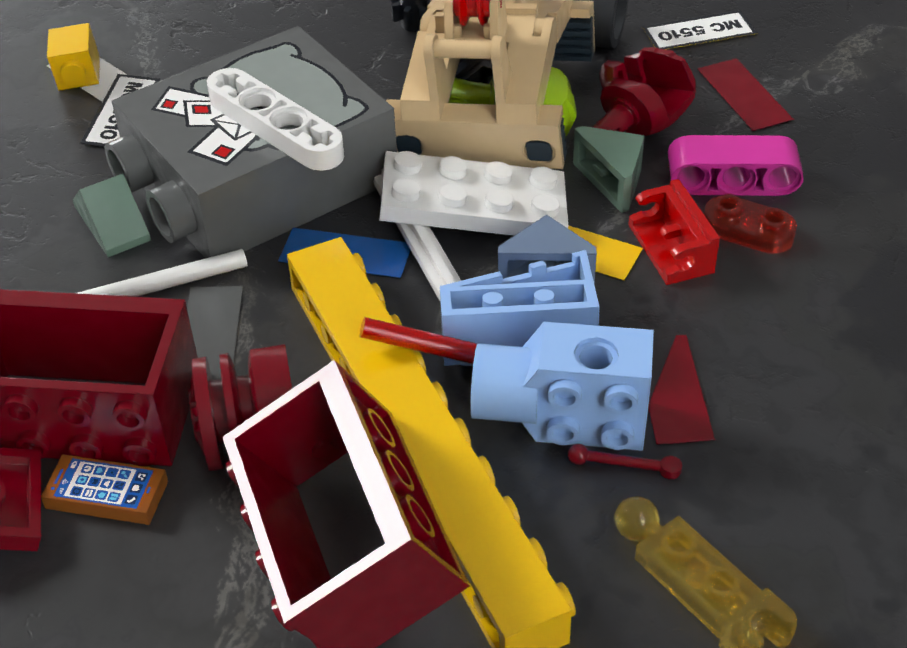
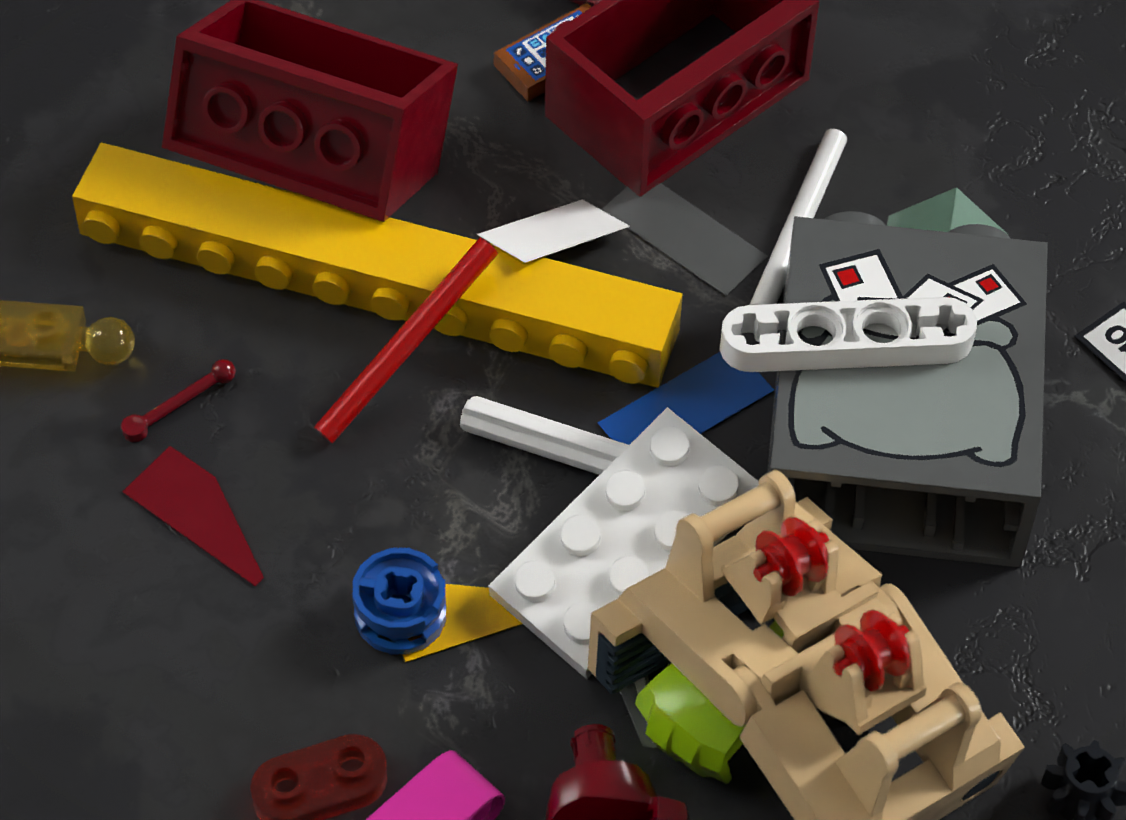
camera: 130 degrees right, 10 degrees up
(227, 402) = (508, 141): dark red wheel -> none
(305, 350) = (553, 230): none -> white sticker
(514, 307) = (394, 428): light blue wedge -> none
(542, 241) = (465, 527): sand blue slope -> none
(569, 384) = (268, 371): light blue brick -> none
(610, 162) = (537, 715): sand green slope -> none
(624, 252) = (400, 598): none -> blue wheel
(675, 233) = (373, 683): red hinge -> none

